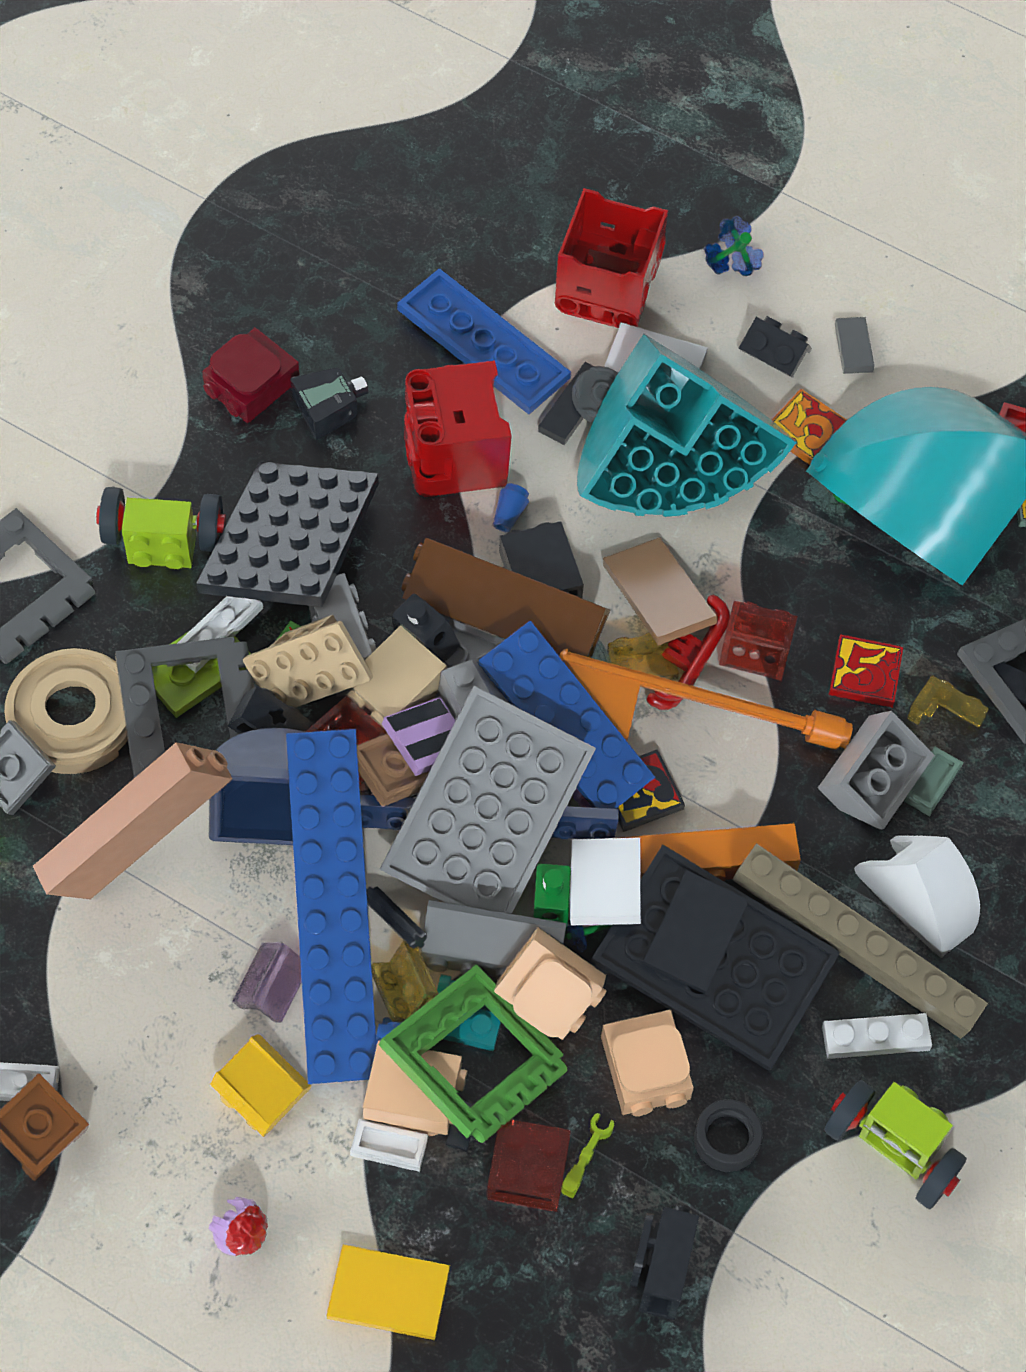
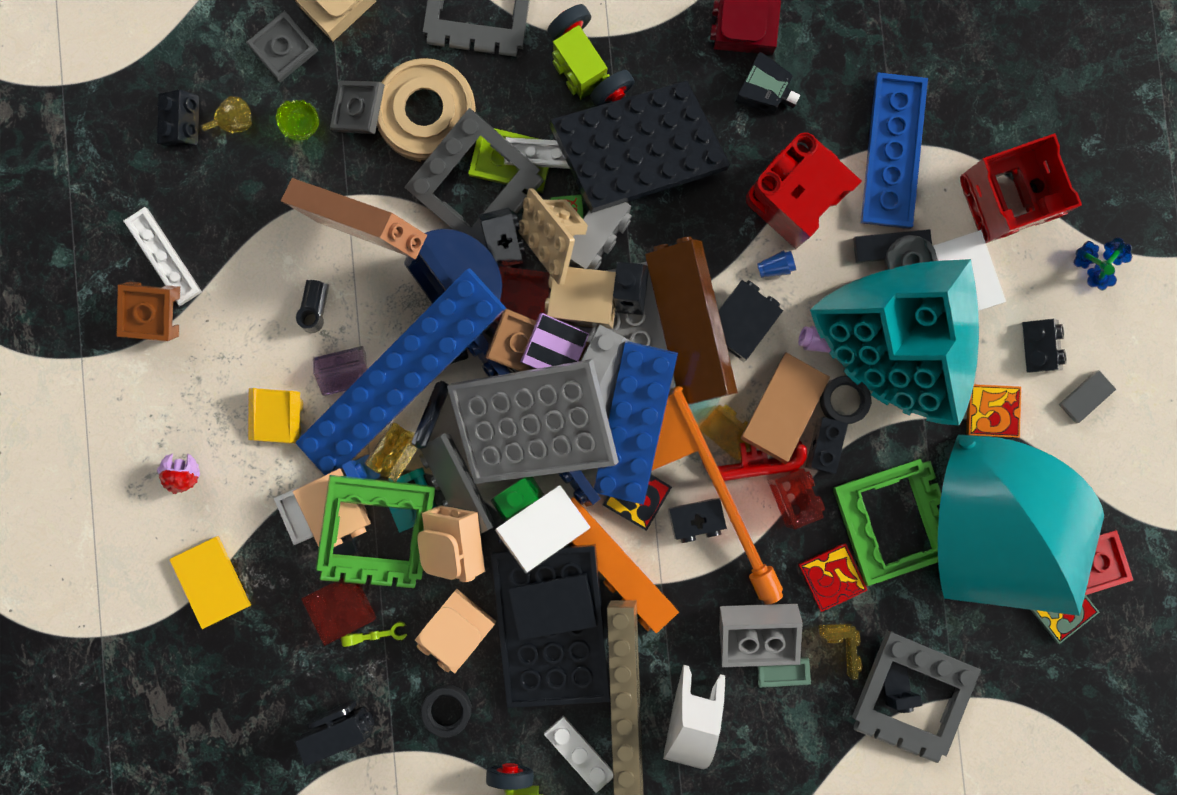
camera: 50 degrees right, 25 degrees up
(177, 958) = (313, 303): none -> black piece
(612, 524) = (810, 340): none -> lavender cone
(699, 519) = (861, 412): none -> black tyre
(711, 731) = (708, 509): none -> black brick
(723, 576) = (826, 445): none -> black brick
(824, 608) = (859, 525): none -> bright green hinge

